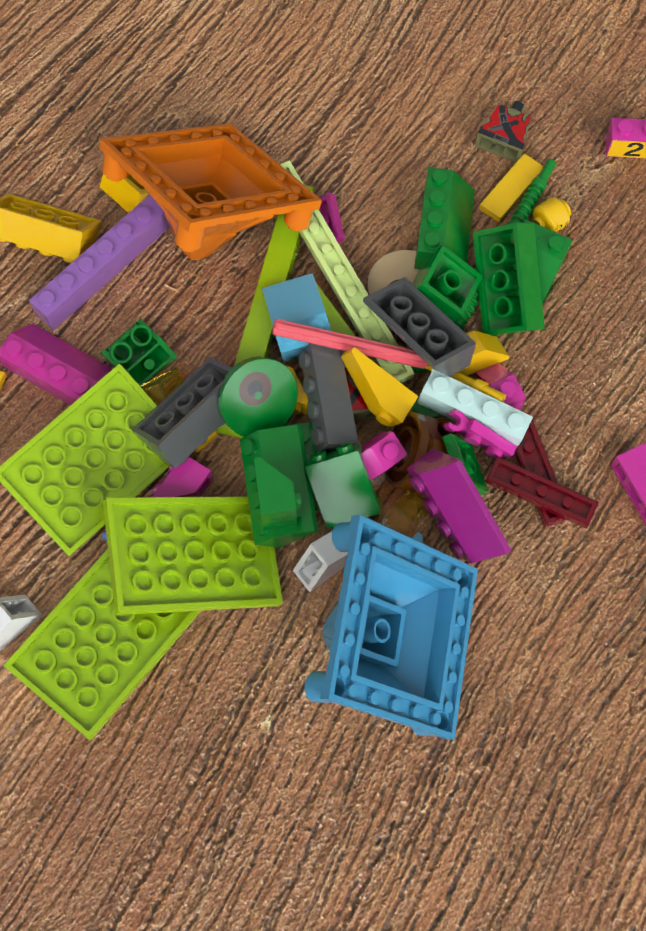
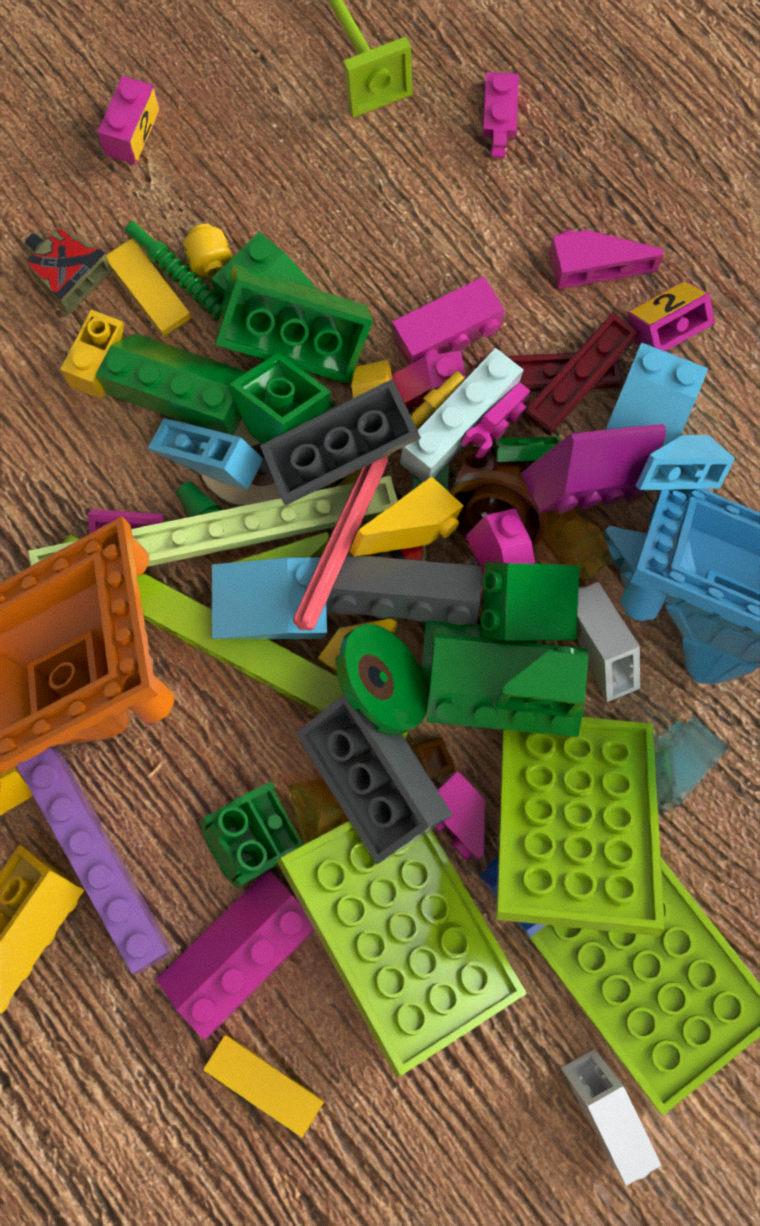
camera: 75 degrees left, 5 degrees up
(218, 457) = (434, 758): none -> reddish brown slope
(254, 623) = (683, 760): none -> clear light blue slope
(361, 258) = (195, 501): none -> green cone
(395, 251) = (207, 452): none -> medium azure slope
(447, 158) = (89, 351): none -> yellow slope
(485, 575) = (686, 464): none -> medium azure slope
(538, 553) = (658, 391): none -> medium azure slope
(551, 389) = (449, 322): none -> dark pink brick
(609, 546) = (672, 316): none -> dark pink brick

